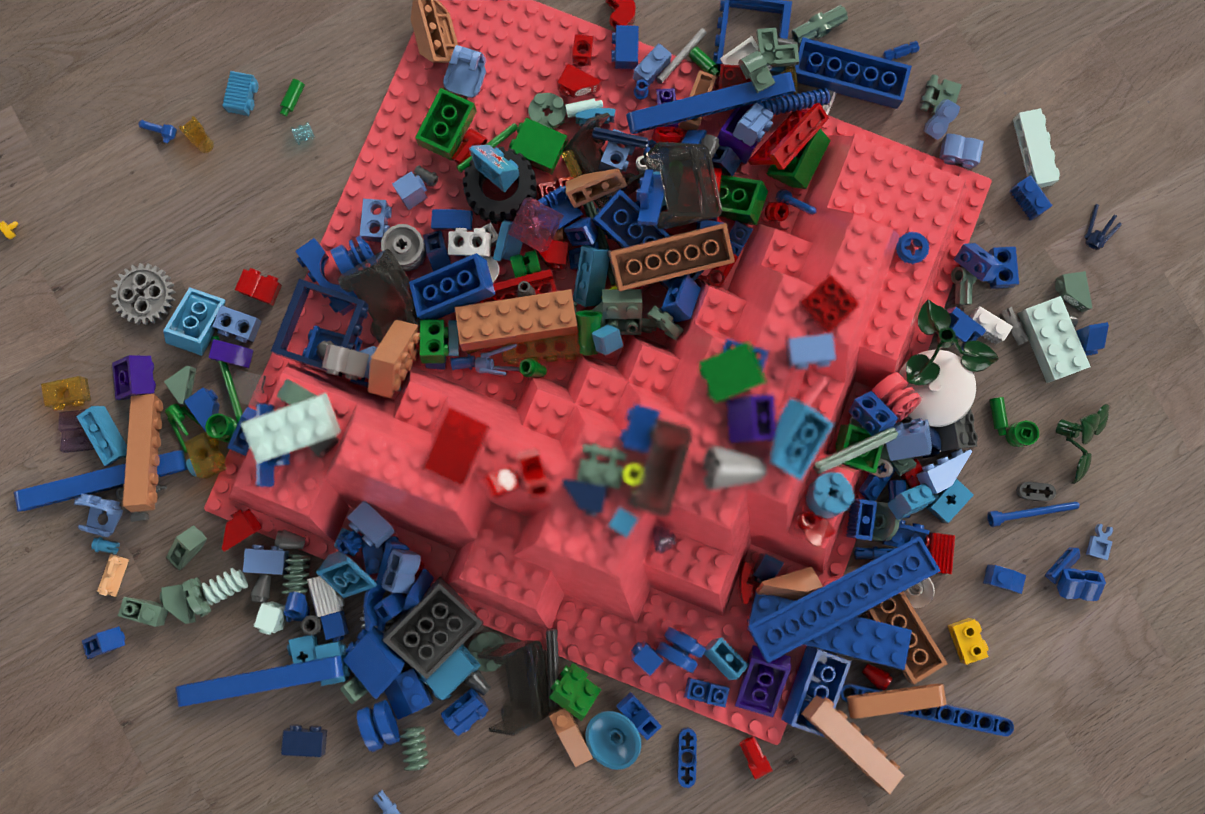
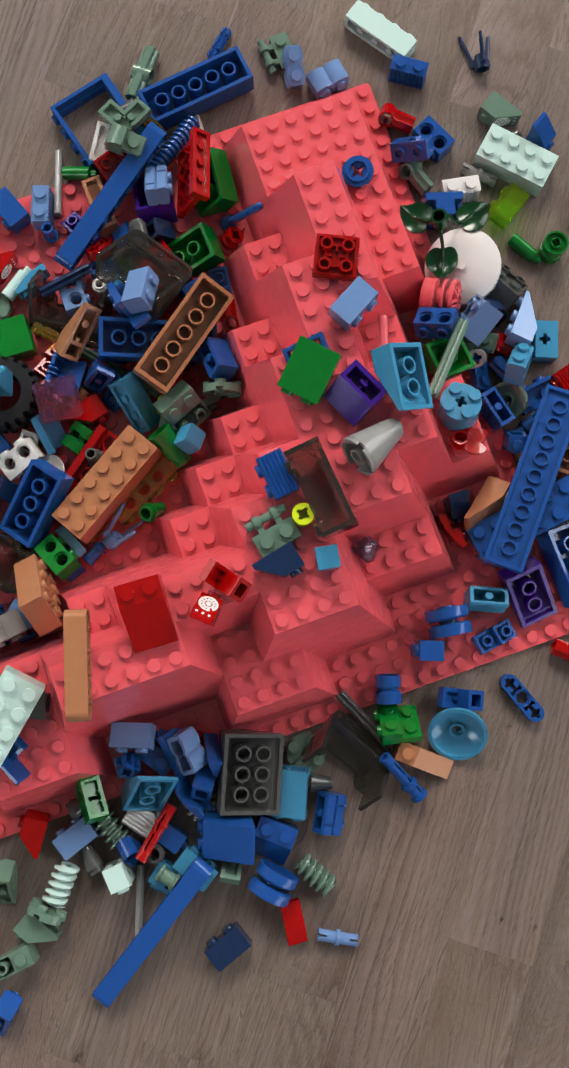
camera: 40 degrees left, 0 degrees up
(271, 648) = (139, 898): none -> light grey bar
(300, 544) = (92, 799): none -> green brick
(304, 650) = (167, 877): none -> sand green bush
(325, 610) = (156, 832): none -> red pin
(367, 769) = (294, 922): none -> red slope
(375, 440) = (77, 665): none -> nougat beam
(543, 742) = (408, 783): none -> blue pin
(591, 659) = (388, 688): none -> blue wheel
(667, 196) = (140, 290): none -> medium blue brick
(855, 557) = (514, 441): none -> blue brick
(987, 226) = (398, 119): none -> red piece
(1016, 370) = (508, 205): none -> clear neon green brick

